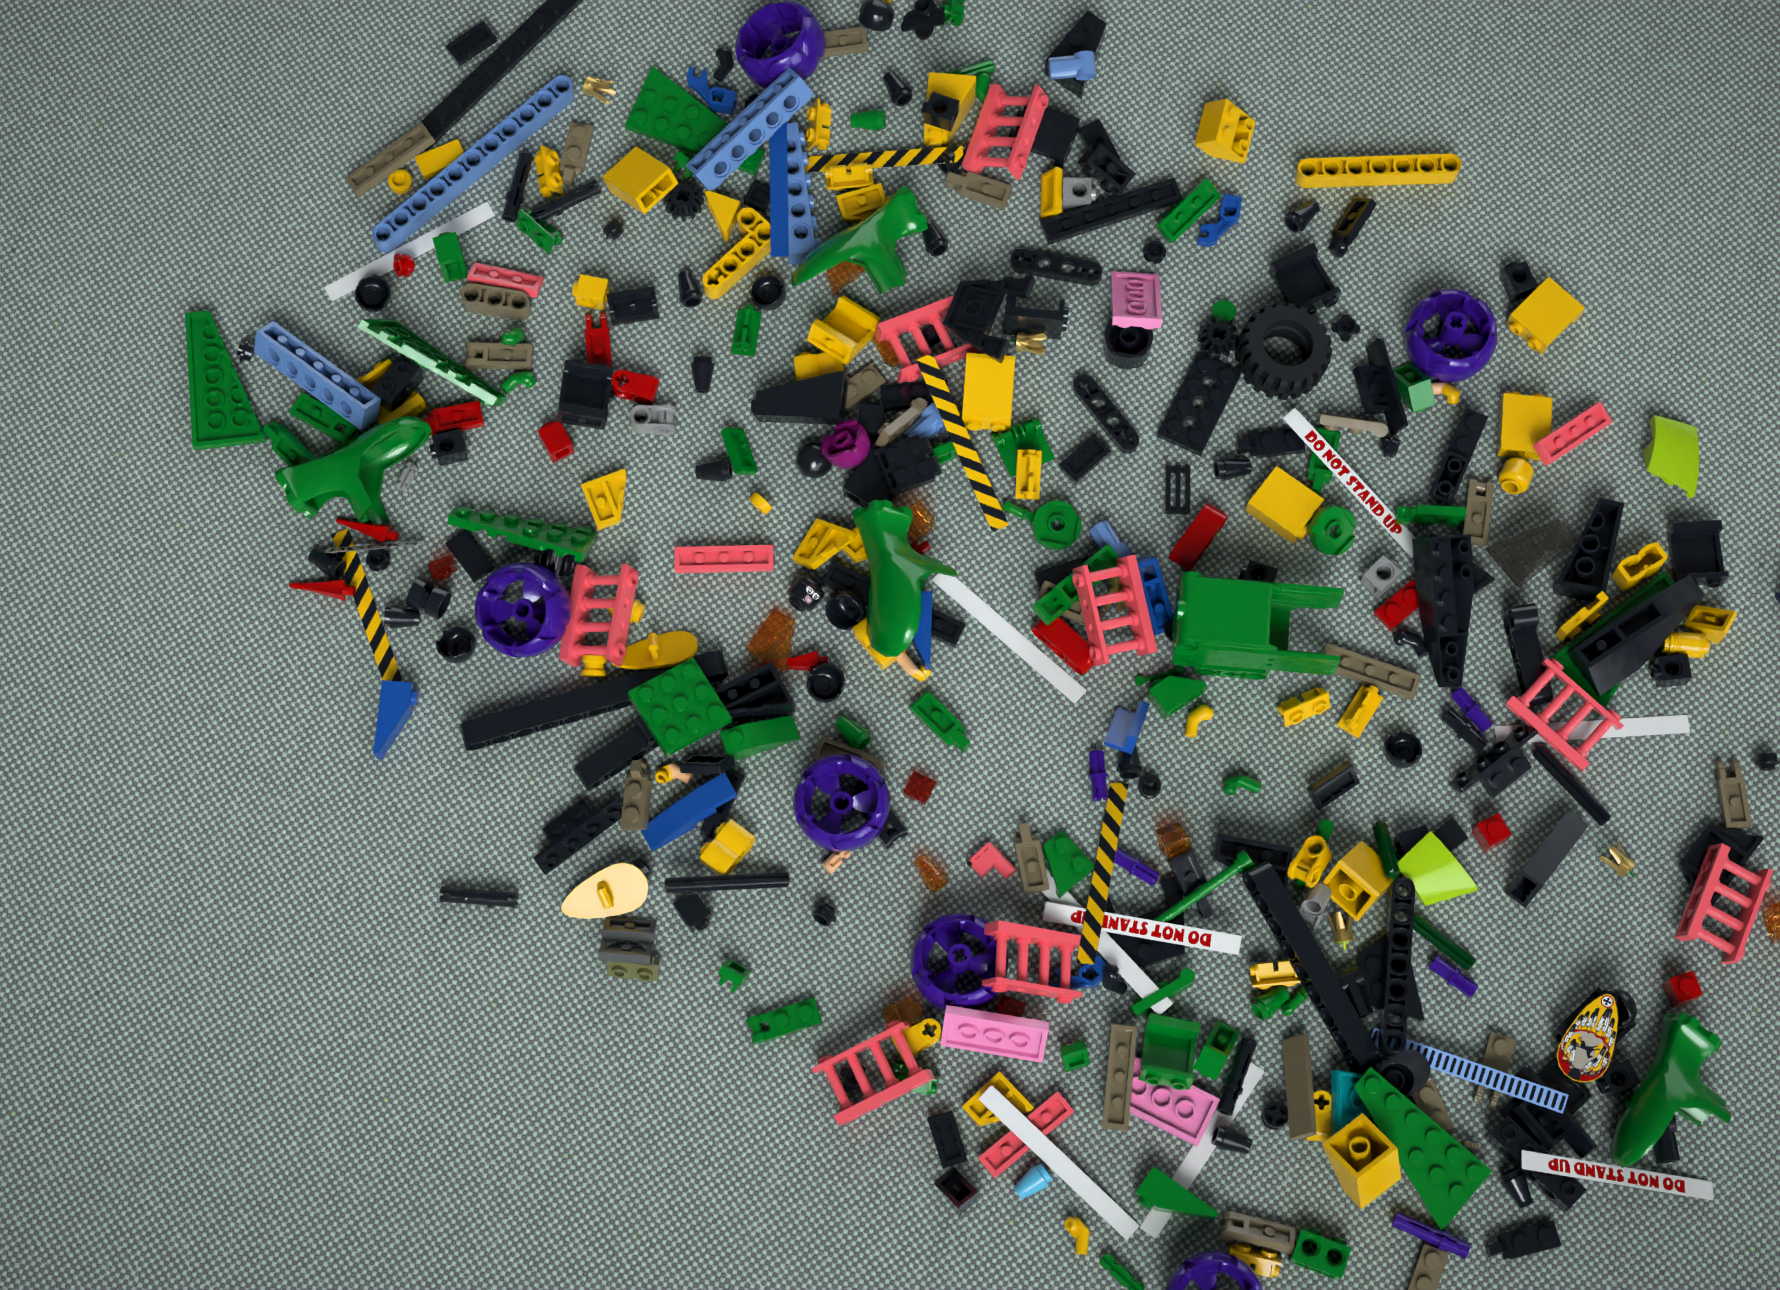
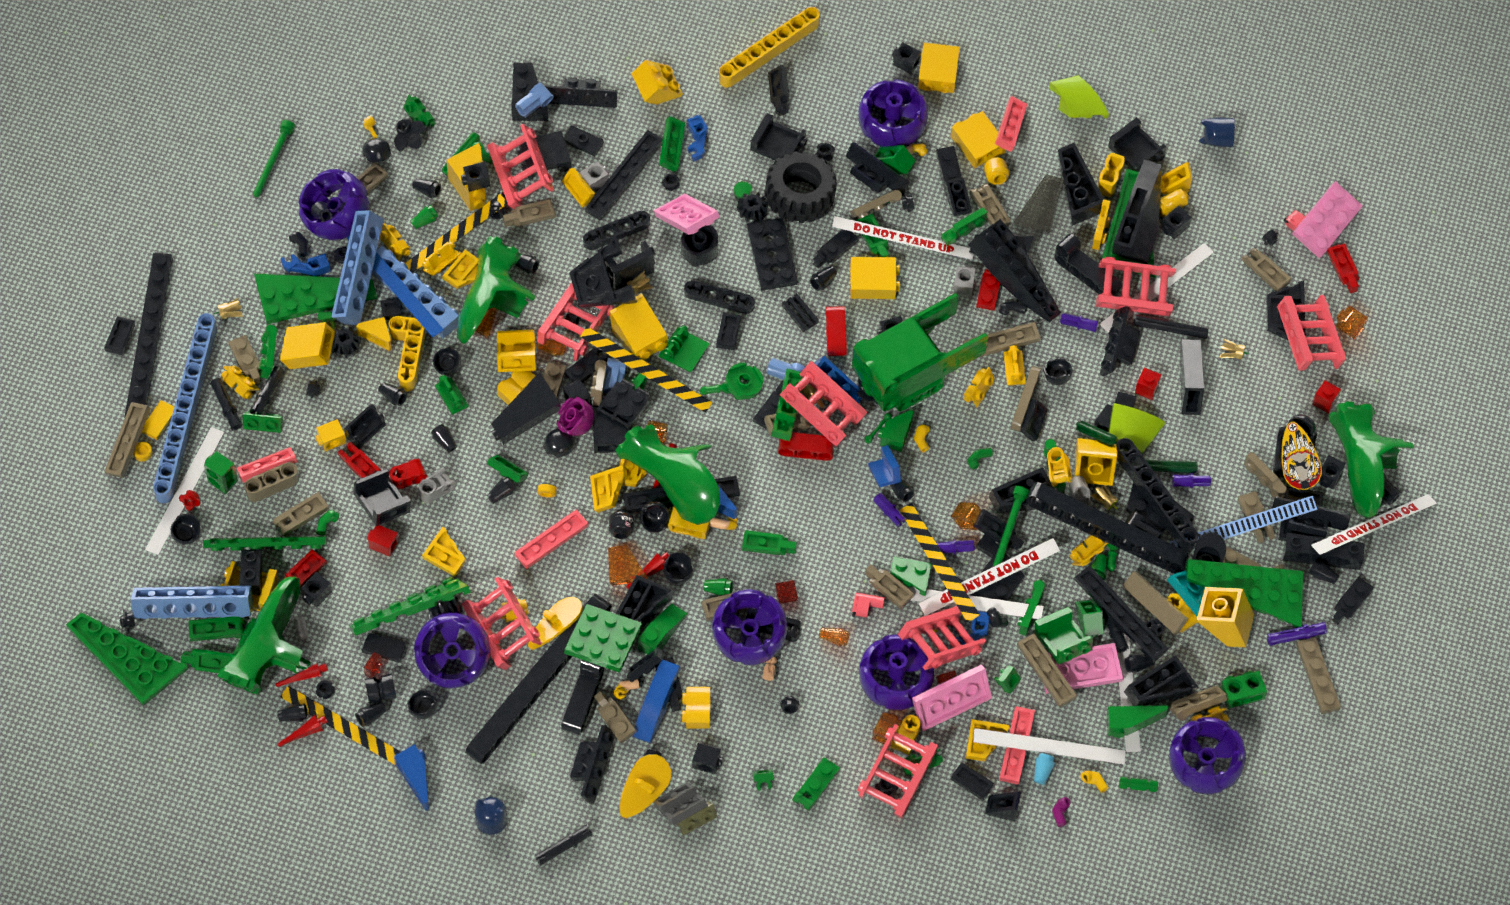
camera: 40 degrees left, 10 degrees down
(374, 546) = (317, 682): white sticker -> none
(431, 812) = (490, 815): none -> dark blue piece
(514, 337) = (303, 494): green arm -> none
(593, 666) = (522, 657): yellow wheel -> none
(598, 158) = (268, 350): none -> green plate
(726, 882) = (715, 725): black axle -> none
(760, 44) = (321, 211): none -> black cone
(1010, 636) = (769, 466): white sticker -> none
(1013, 1240) = (1059, 810): none -> magenta arm
(1028, 474) = (701, 362): yellow hinge -> none
(1106, 168) = (602, 149): black brick -> none
(1137, 91) = (583, 93): none -> black bracket
(1149, 778) = (925, 489): black bush -> none
(1234, 1182) = (1161, 684): none -> black wedge
(1249, 1074) = (1121, 614): none -> black plate
(1300, 217) = (744, 104): black cone -> none
(1320, 526) = (906, 276): green plate -> none
(1344, 754) = (1025, 399): none -> dark tan beam
(1464, 730) = (1084, 337): black pin -> none
(1540, 1031) = (1265, 475): none -> dark tan hinge

